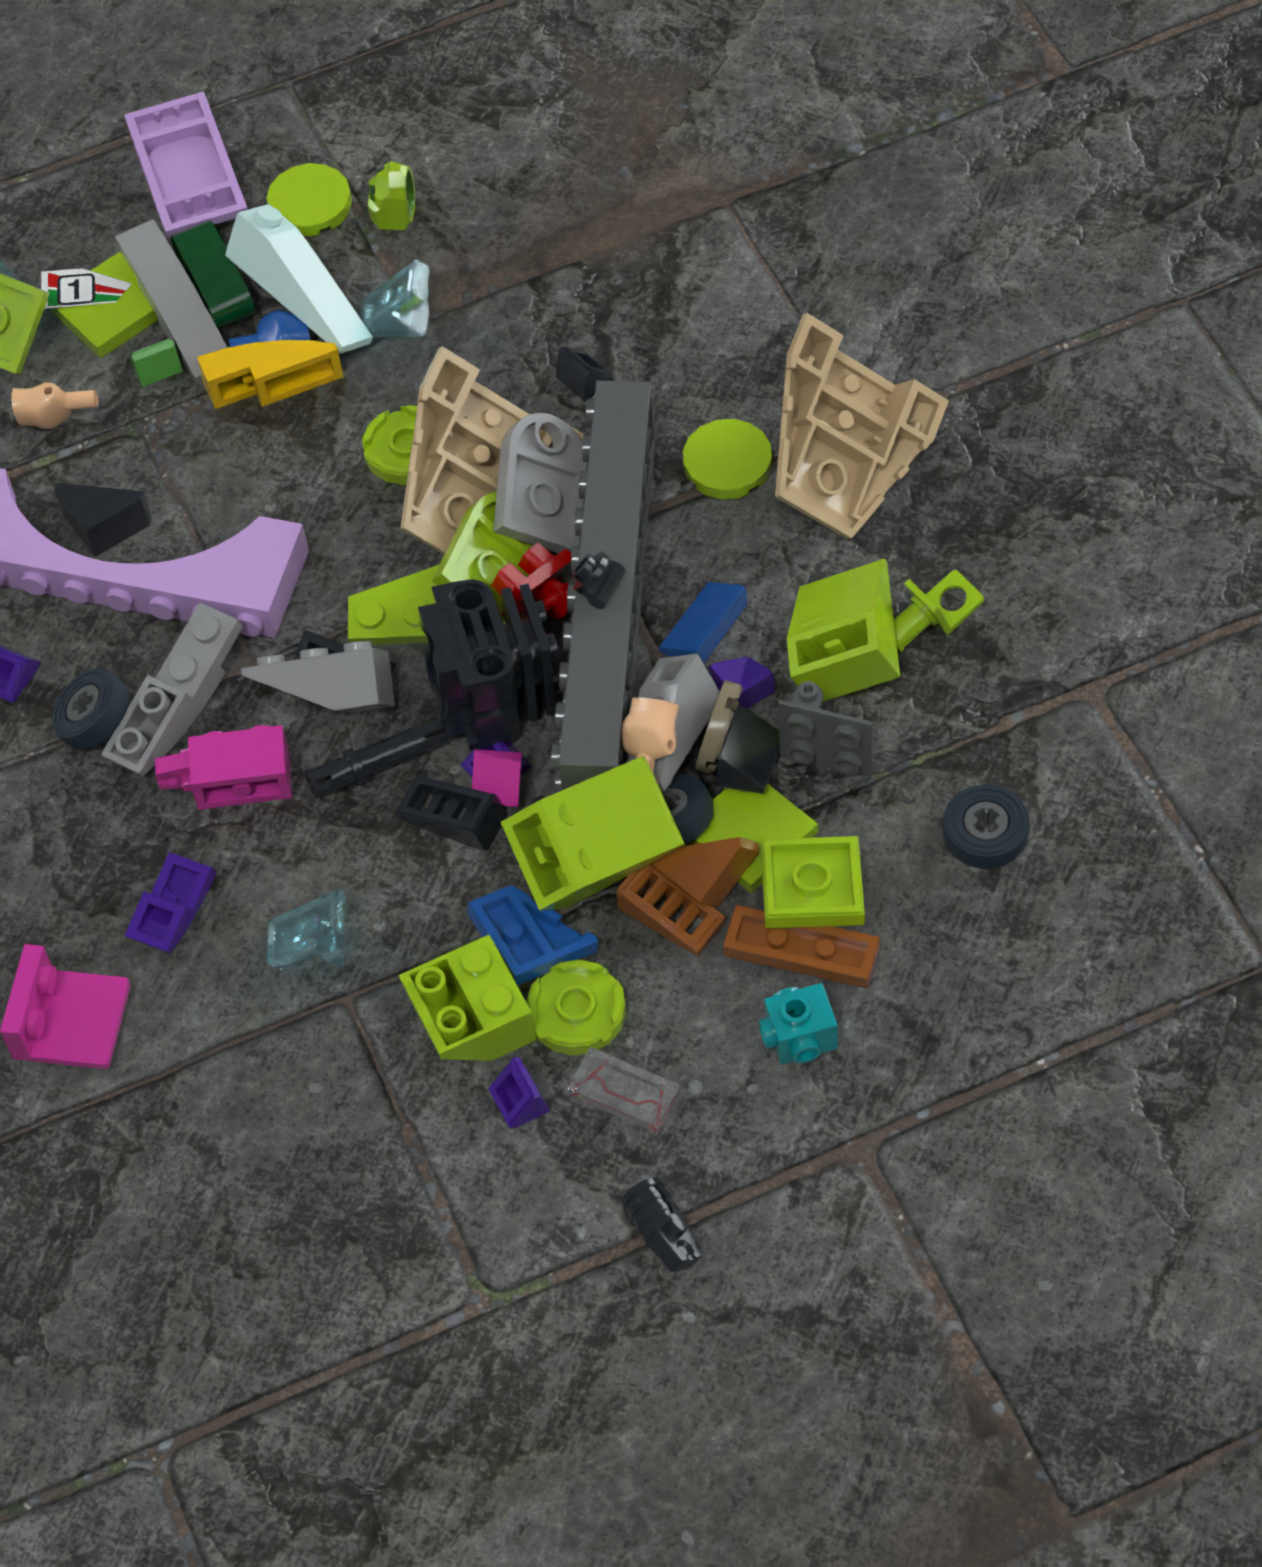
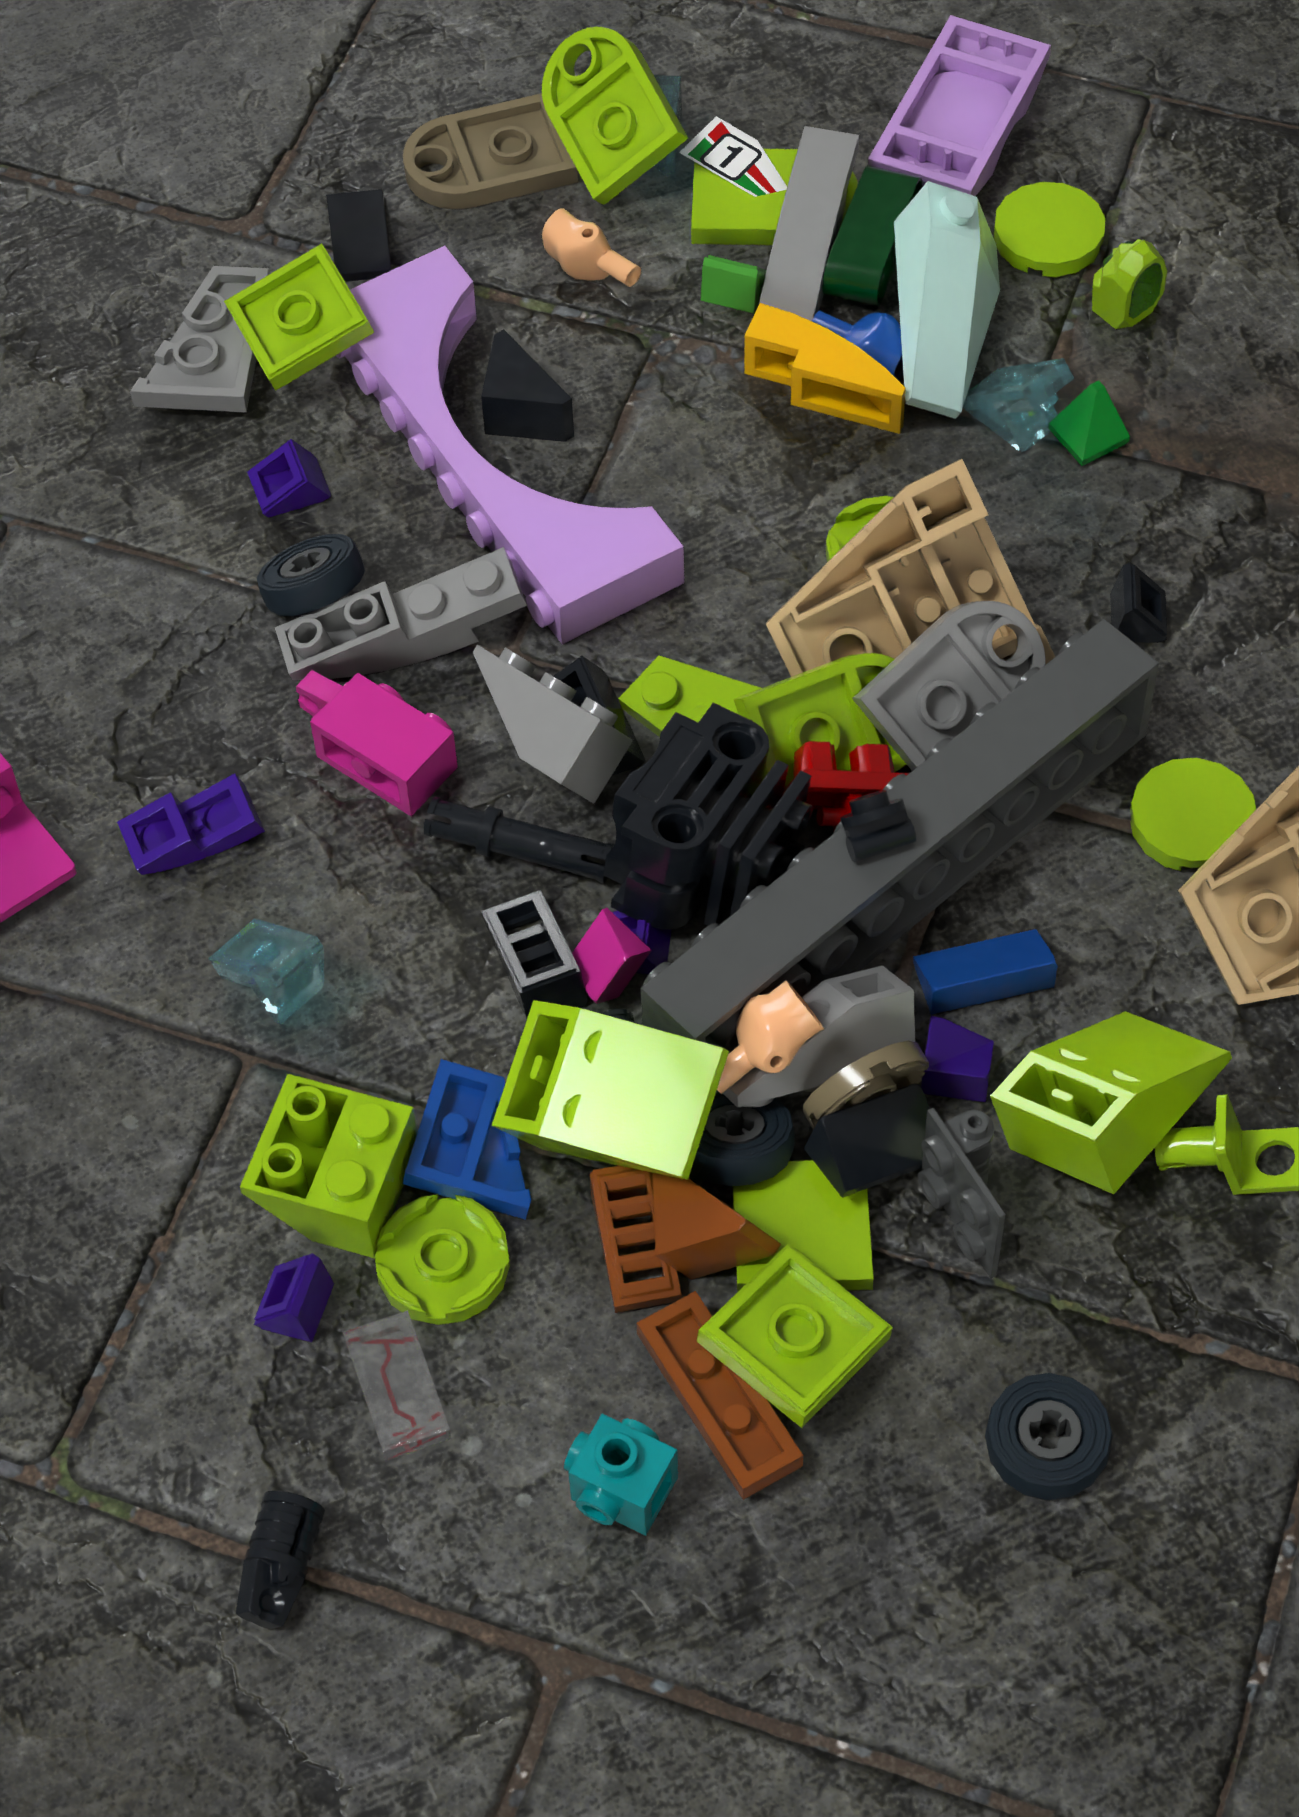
camera: 40 degrees right, 0 degrees up
(451, 292) = (1090, 425): none -> green slope

